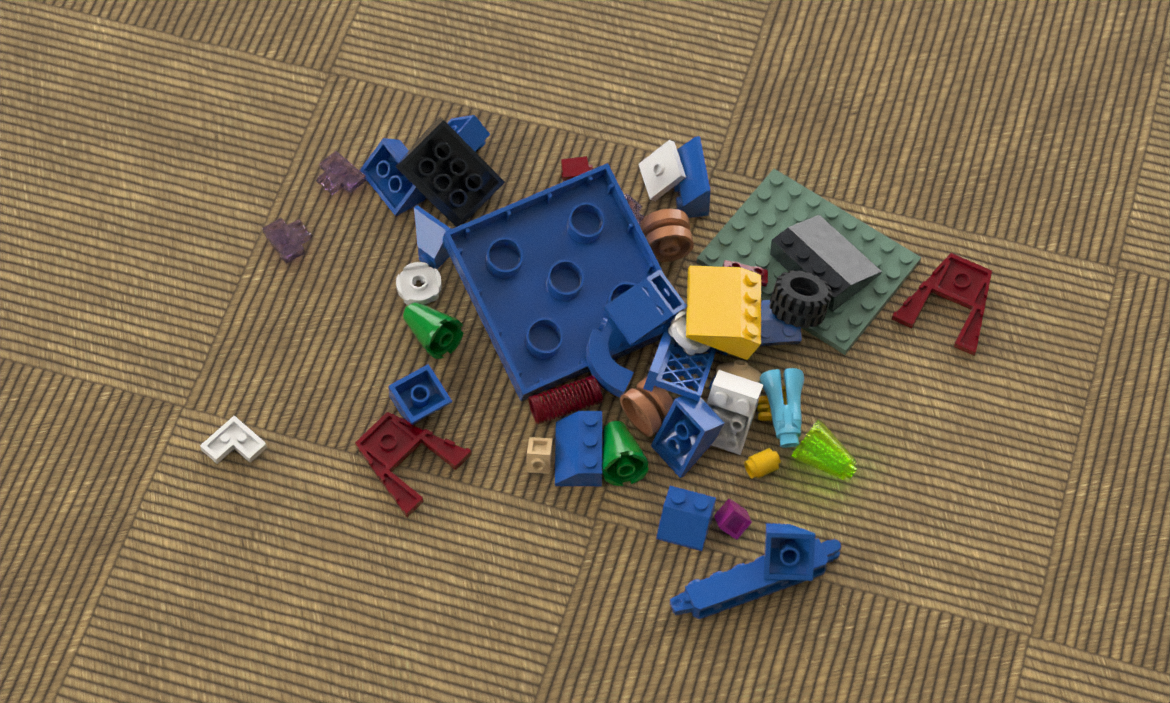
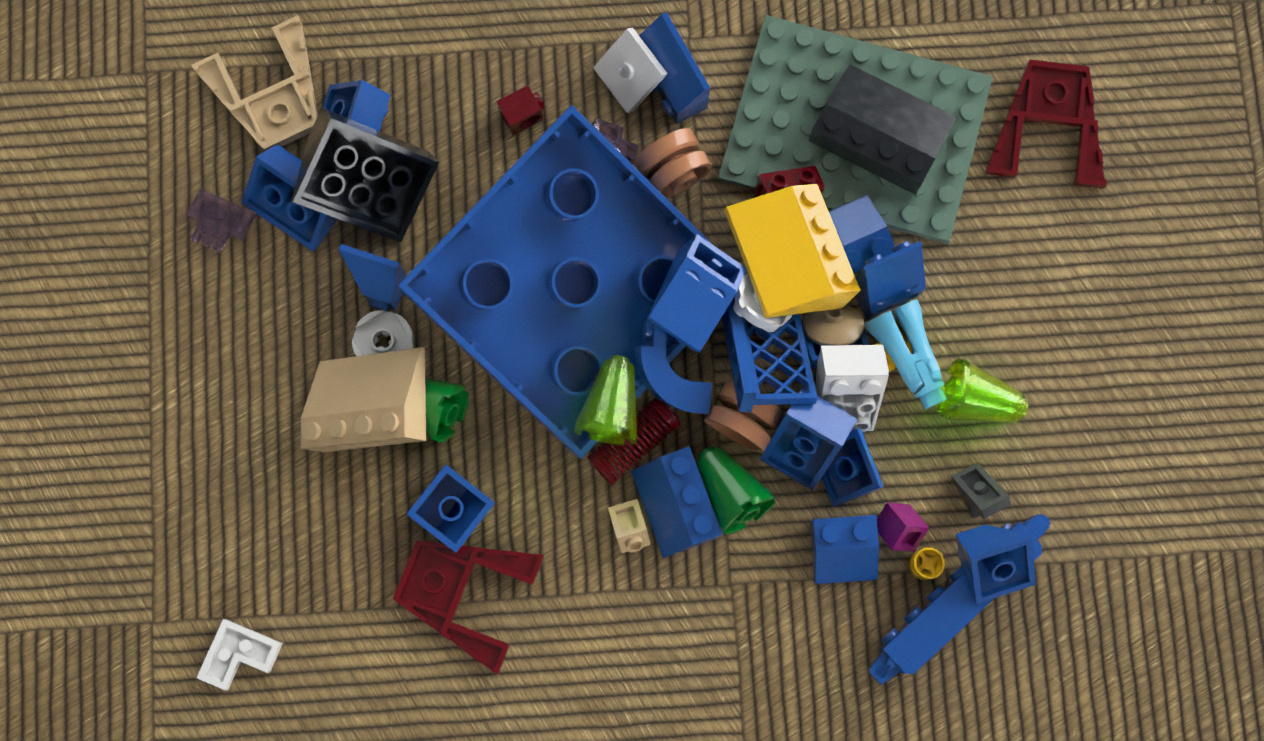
camera: 20 degrees left, 20 degrees up
(287, 238) = (188, 337): hinge -> none
(390, 313) = (366, 402): none -> tan slope
(407, 121) = (280, 111): none -> tan wing
(556, 361) = (611, 404): none -> clear neon green cone
(710, 472) = (852, 471): none -> blue slope
(744, 543) = (932, 562): none -> yellow wheel
(762, 463) = (908, 437): yellow brick -> none
(789, 347) = (891, 279): none -> blue slope
(800, 299) = (879, 221): black tyre -> none
(800, 514) = (980, 491): none -> dark grey slope

